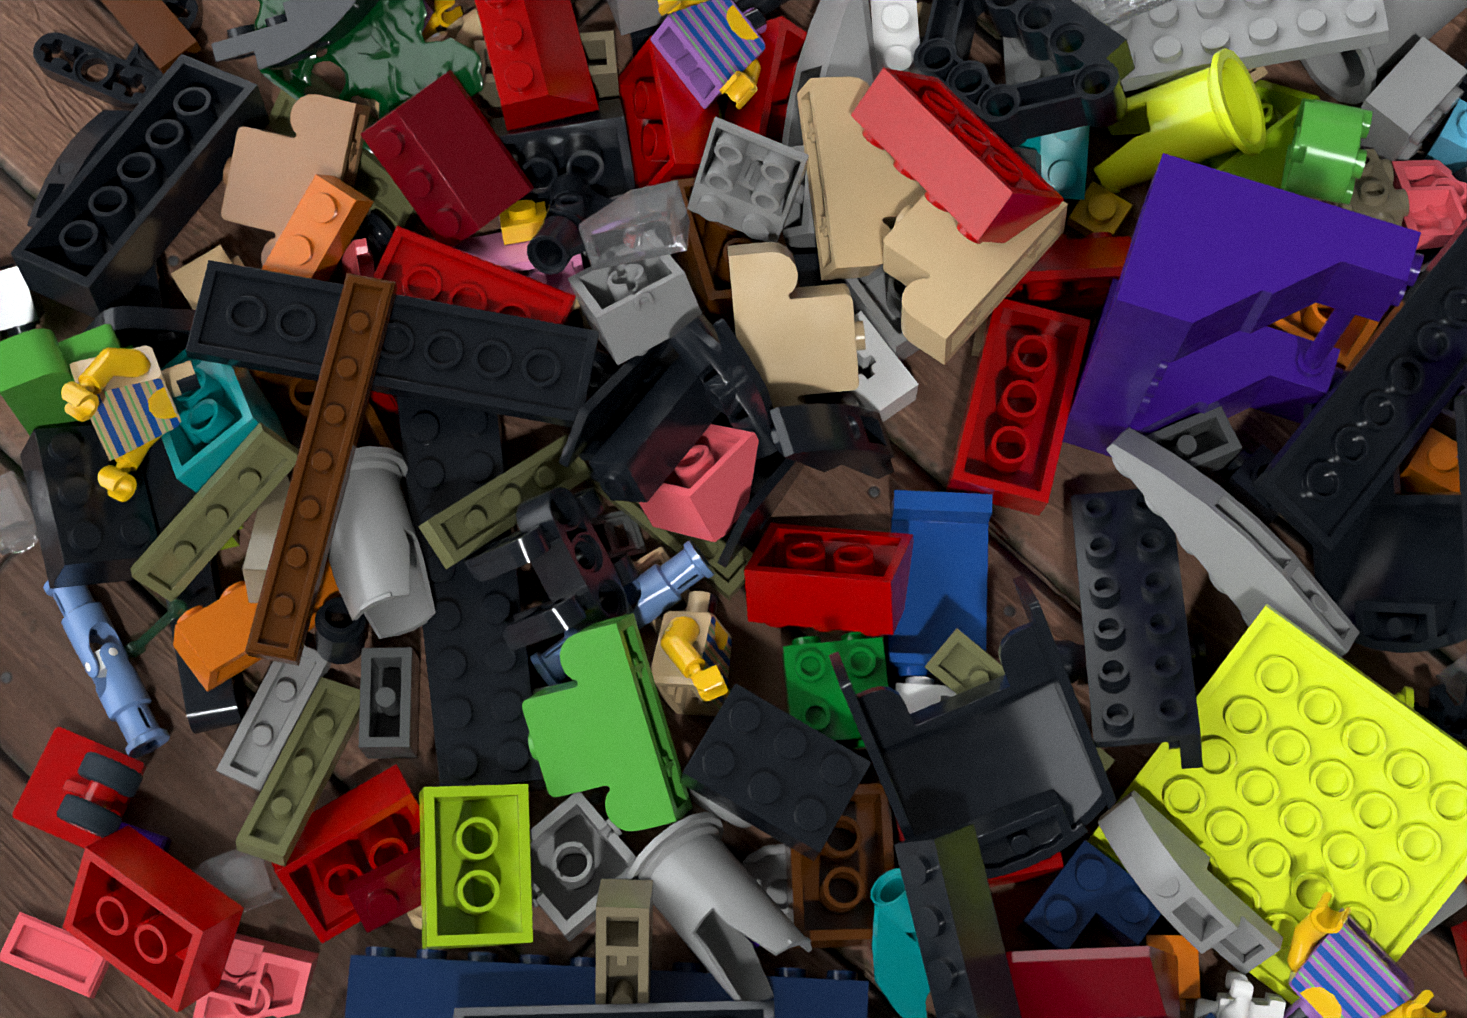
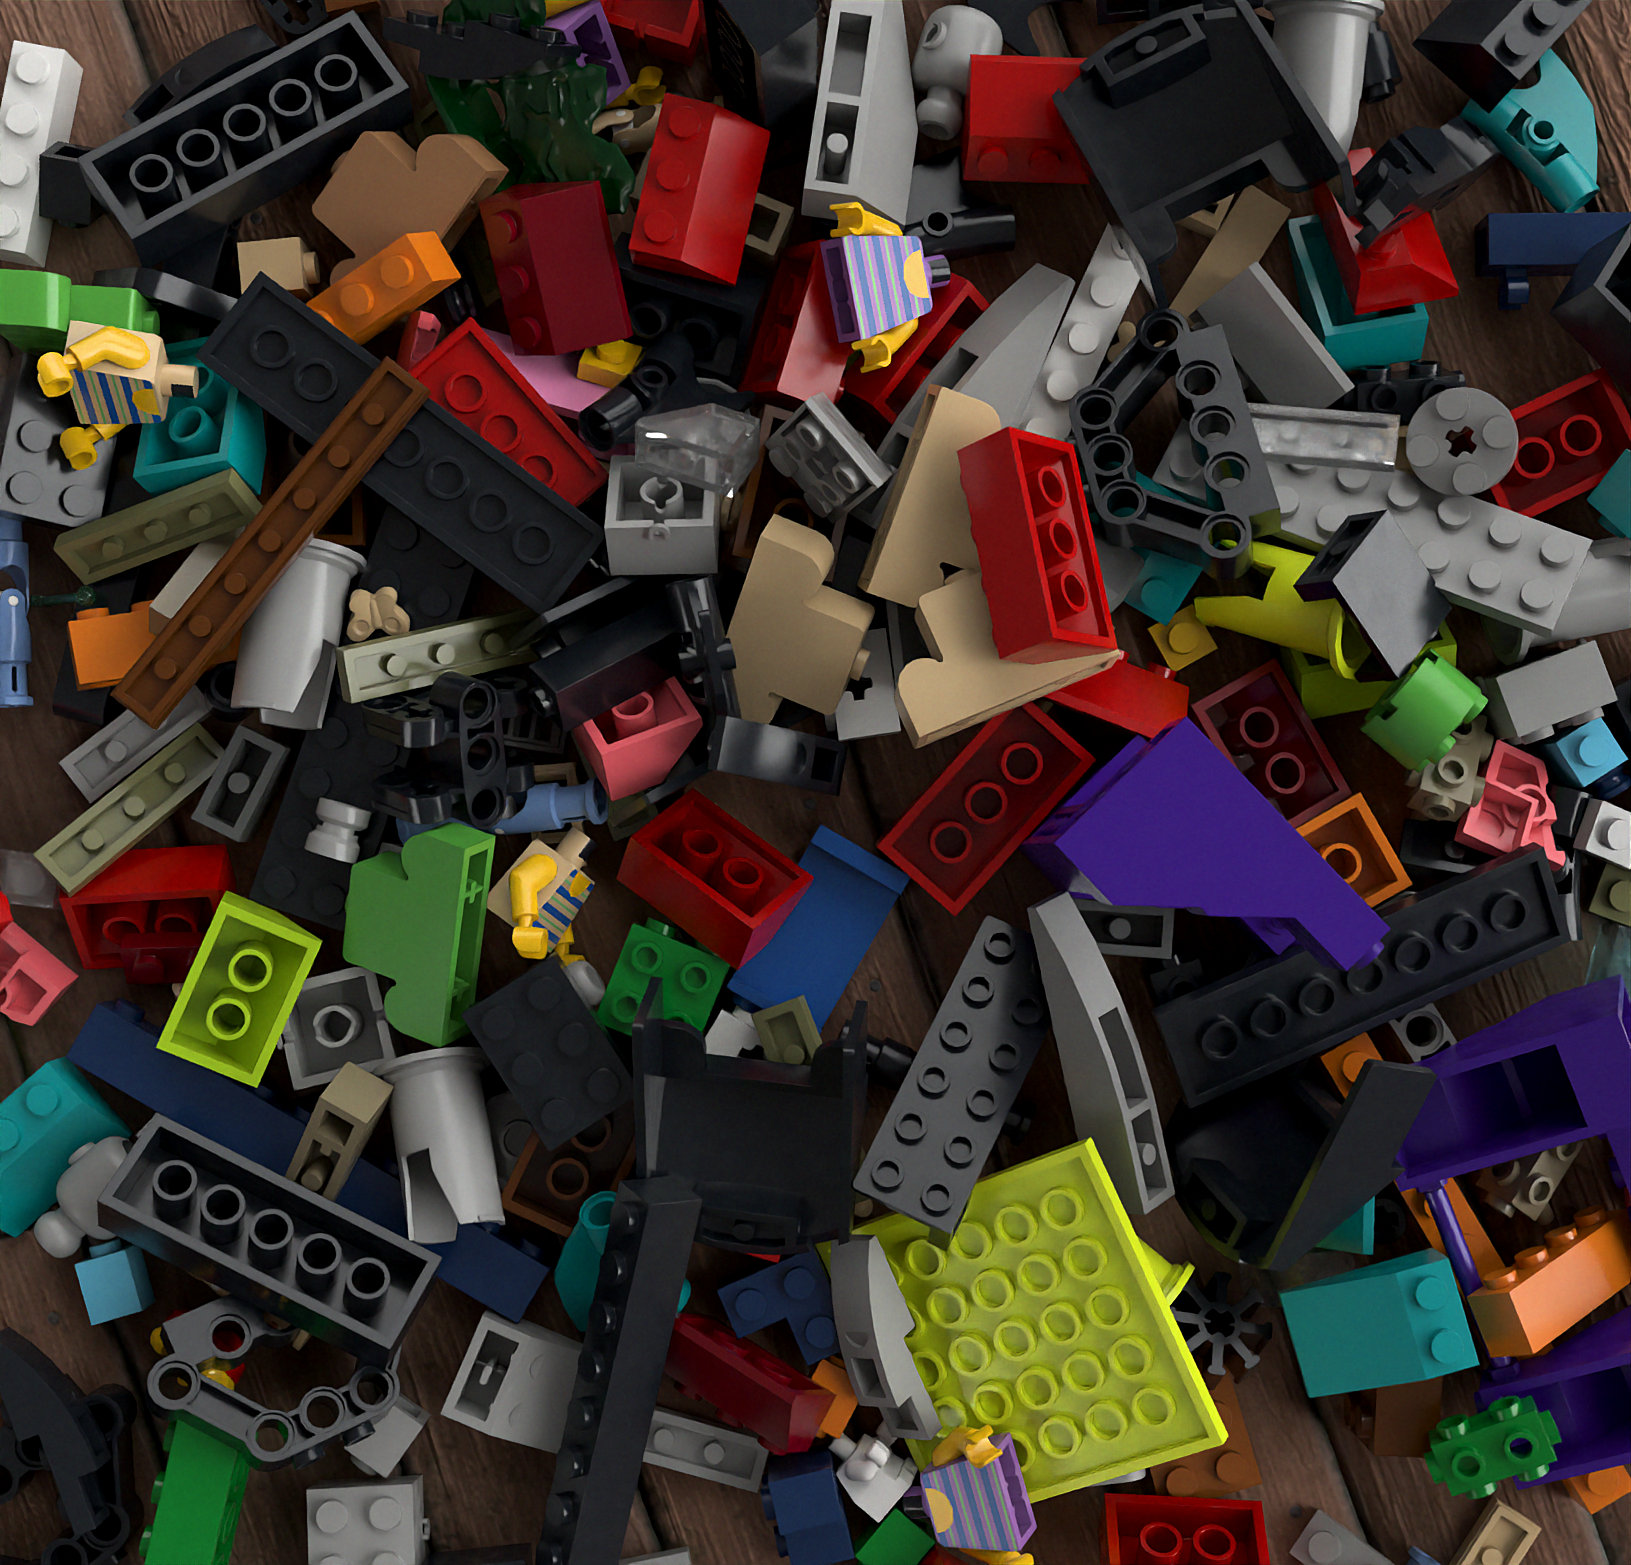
camera: 25 degrees right, 15 degrees up
(434, 493) = (376, 612): none -> tan piece
(493, 688) = (336, 835): none -> light grey wheel
(1241, 64) = (1380, 589): none -> panel

